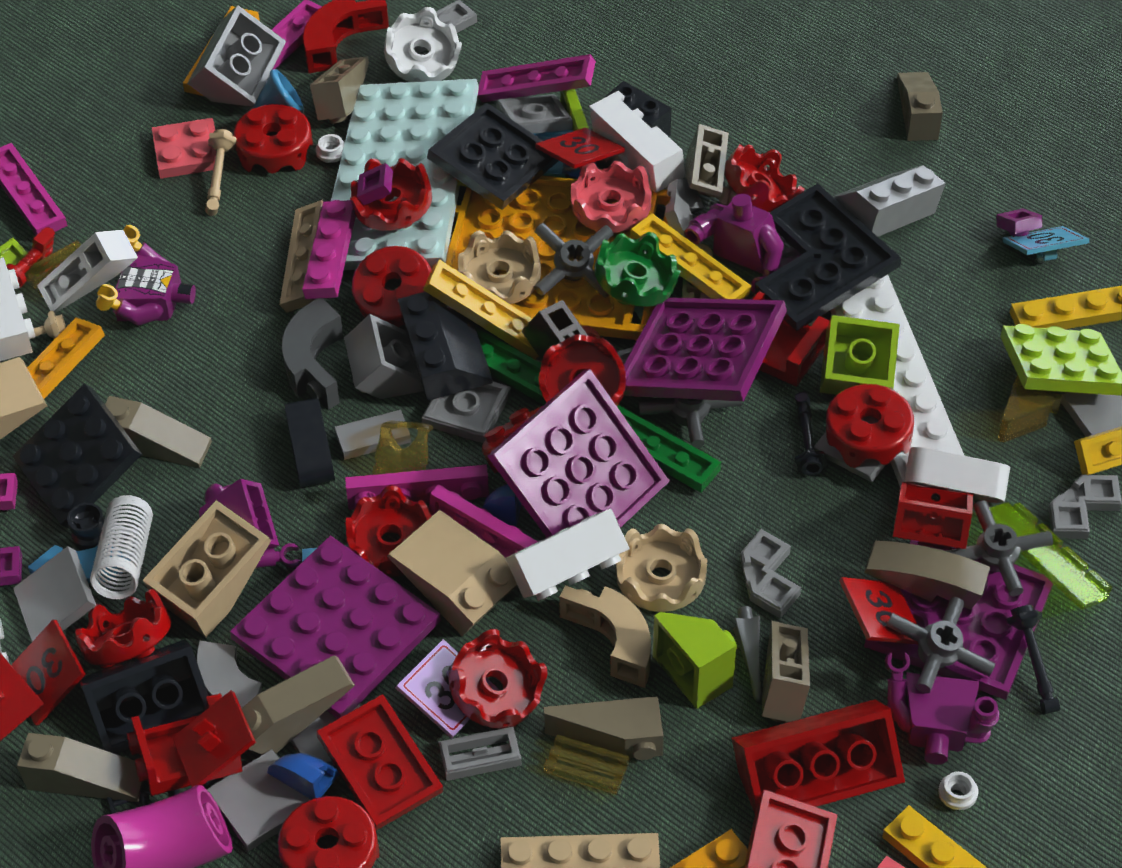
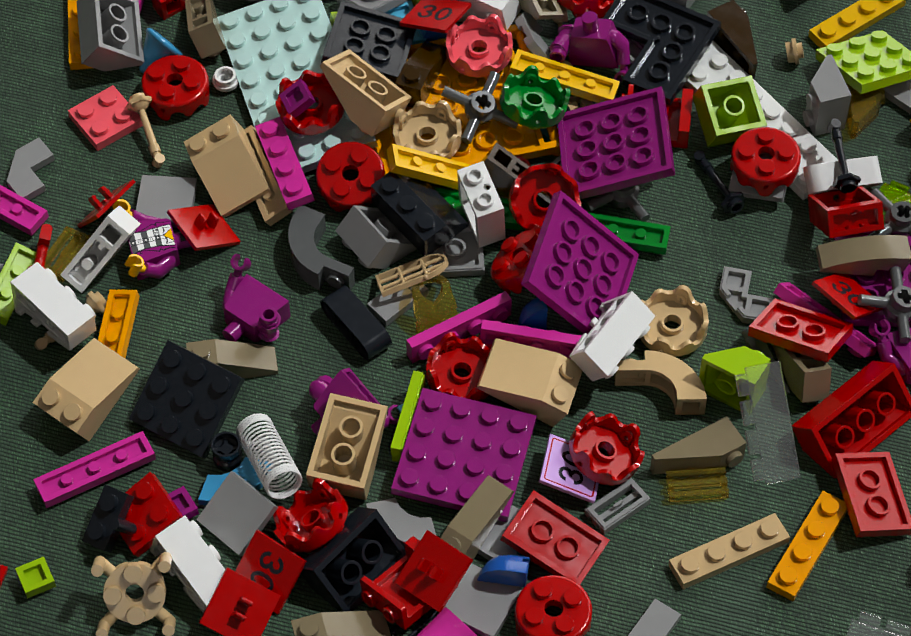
camera: 25 degrees left, 5 degrees up
(65, 179) = (25, 162): none -> light grey tile
(141, 222) = (104, 205): none -> red piece
(197, 249) = (164, 193): none -> light grey tile
(208, 385) = (251, 306): none -> magenta torso
(211, 287) = (203, 227): none -> red piece
(272, 231) = (227, 165): none -> tan slope
(327, 526) = (407, 413): none -> lime tile
(396, 410) = (413, 279): none -> tan window
(448, 199) = (364, 92): none -> tan slope
(504, 358) = (481, 205): none -> white window
(529, 205) = (421, 71): none -> dark brown slope
(704, 725) = (773, 427): none -> clear windscreen
(801, 630) = (800, 330): none -> red plate
(844, 626) = (858, 343): none -> dark pink plate
(917, 279) = (735, 35): none -> dark brown slope
(949, 480) = (846, 181): none -> black piece
(979, 321) = (794, 51): none -> tan plate
(981, 382) = (826, 98): none -> light grey slope

